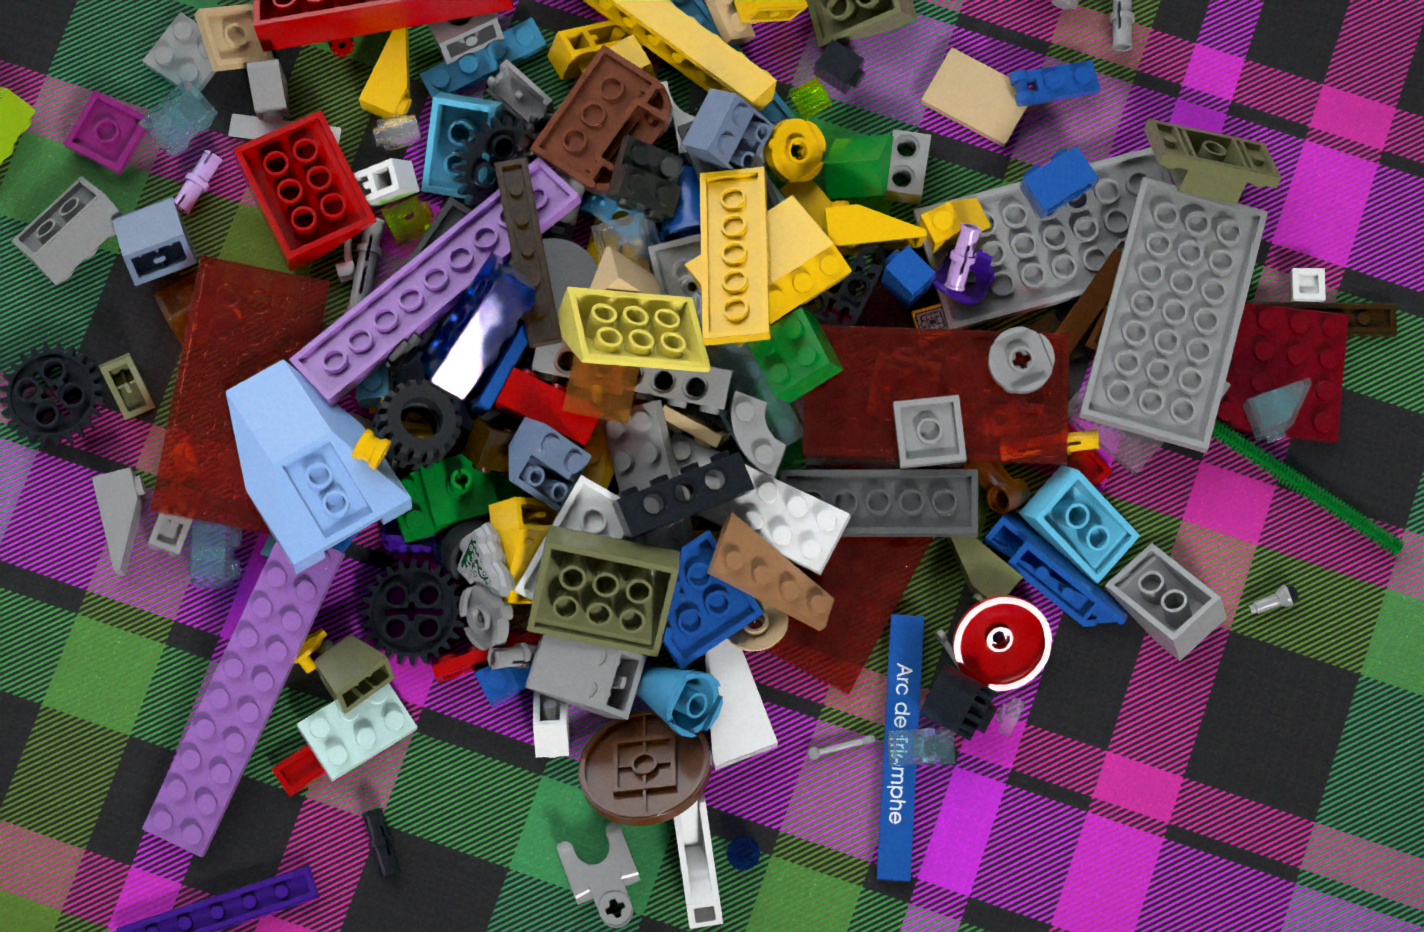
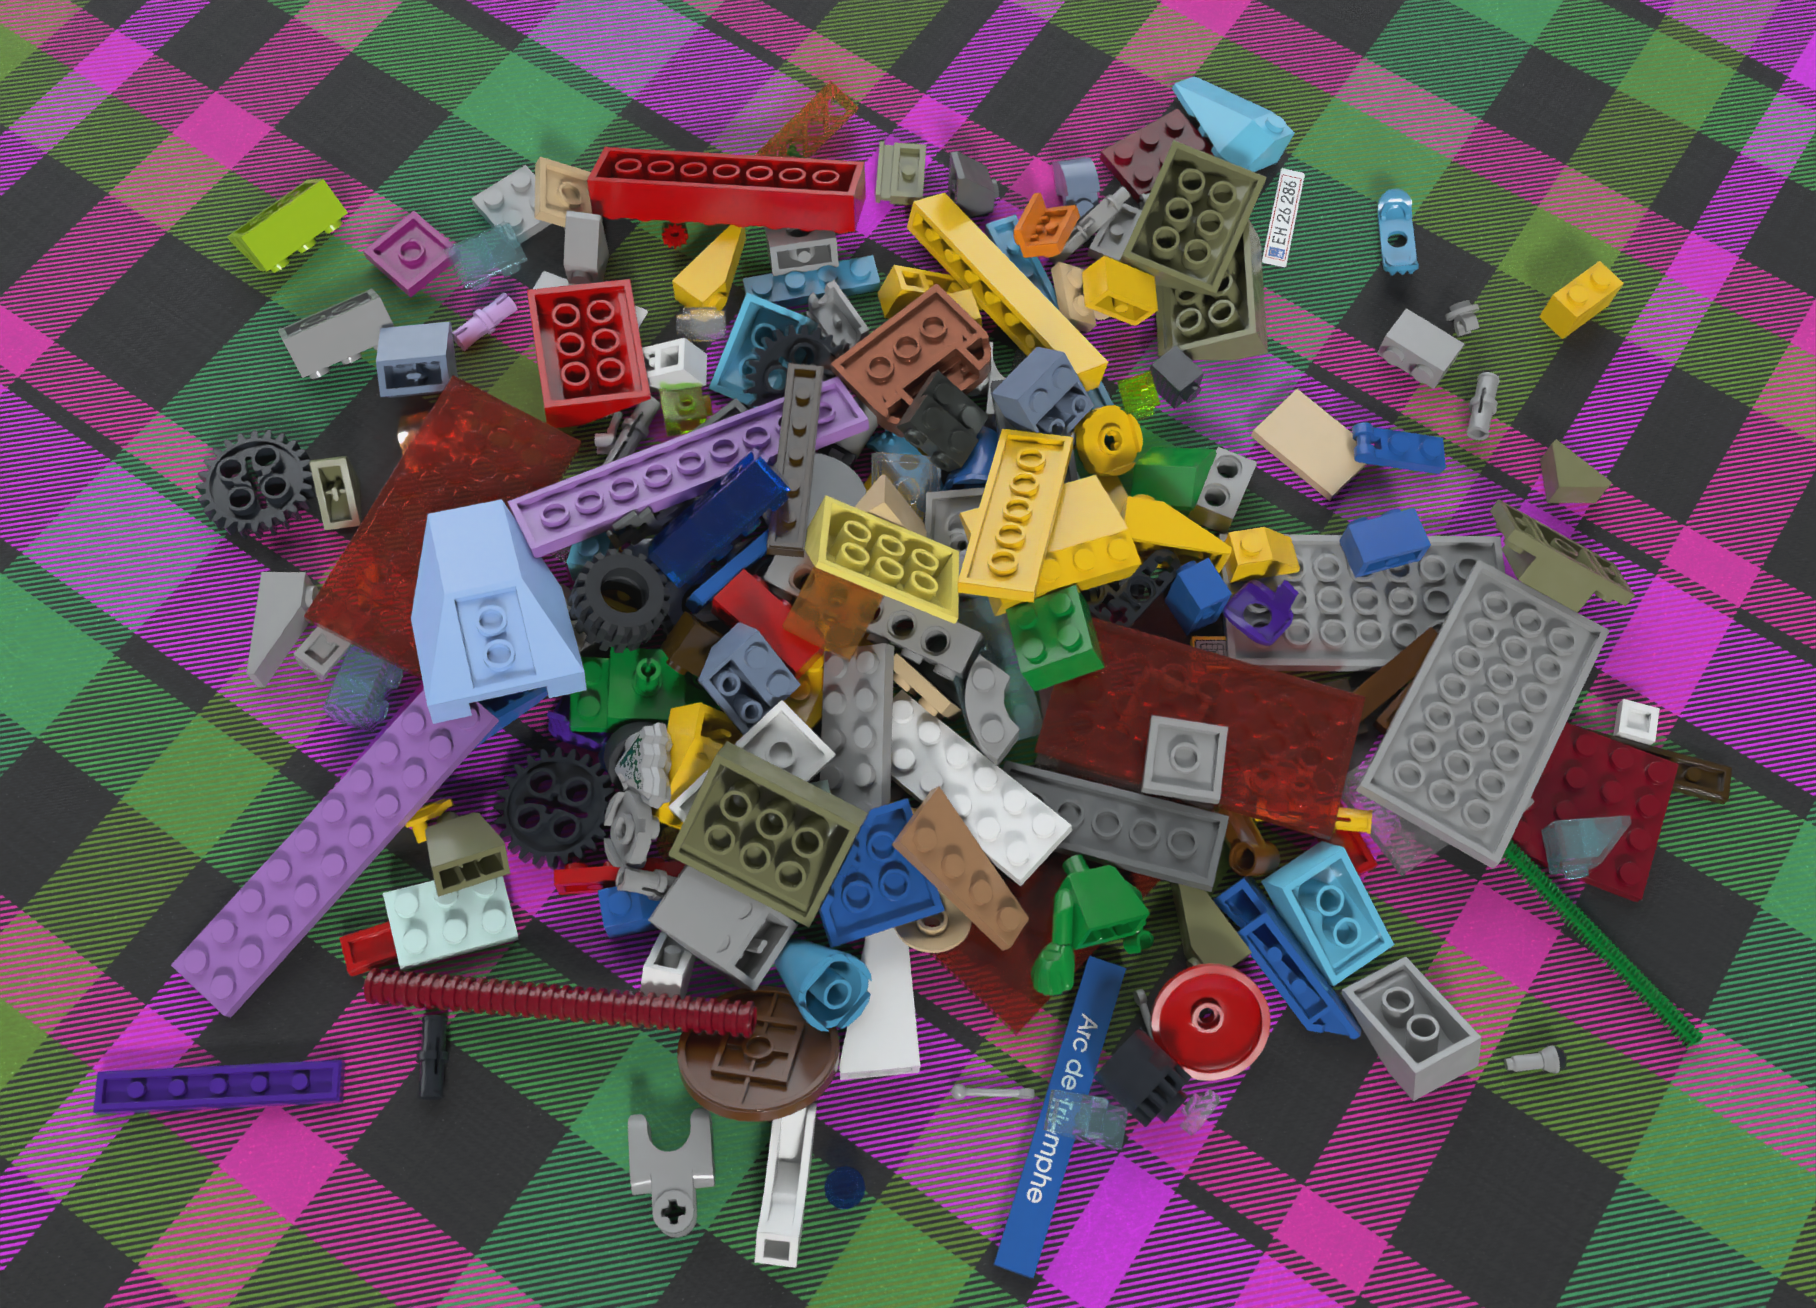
camera: 10 degrees right, 10 degrees down
(371, 449) = (556, 605): yellow wheel -> none
(471, 772) = (559, 1002): none -> dark red piece
(638, 521) = (832, 768): black brick -> none
(879, 581) = (1089, 911): none -> green torso
(962, 256) = (1264, 587): lavender pin -> none
(1030, 344) = (1294, 727): light grey plate -> none
(1211, 70) = (1569, 477): none -> olive slope

